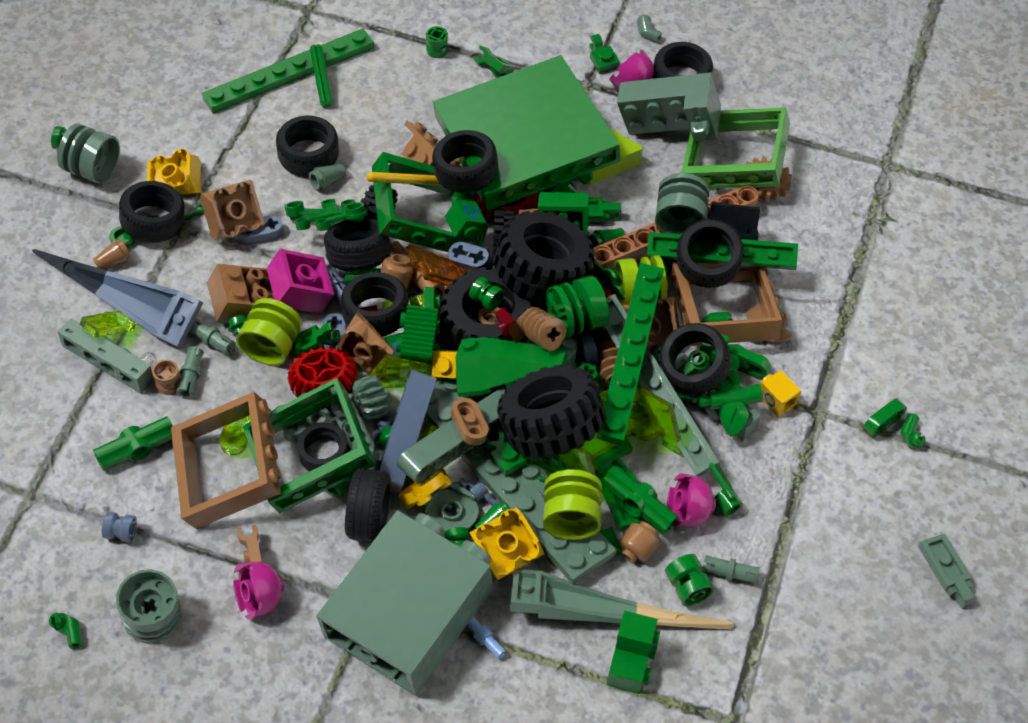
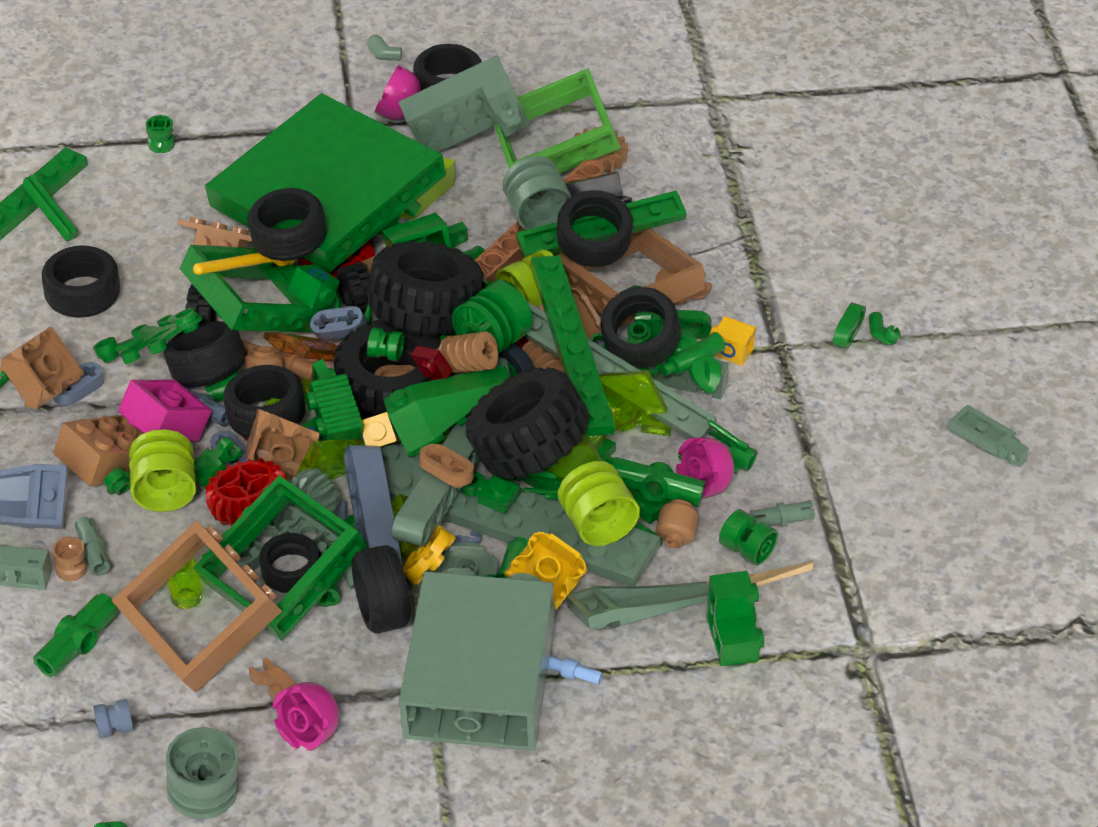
camera: 25 degrees left, 10 degrees down
(212, 337) = (95, 503): sand green pin -> none
(325, 176) = (118, 306): sand green cone -> none
(480, 491) = (486, 539): sand blue hand -> none
(496, 63) = (242, 135): green plate -> none
(602, 58) = (352, 93): green plate -> none

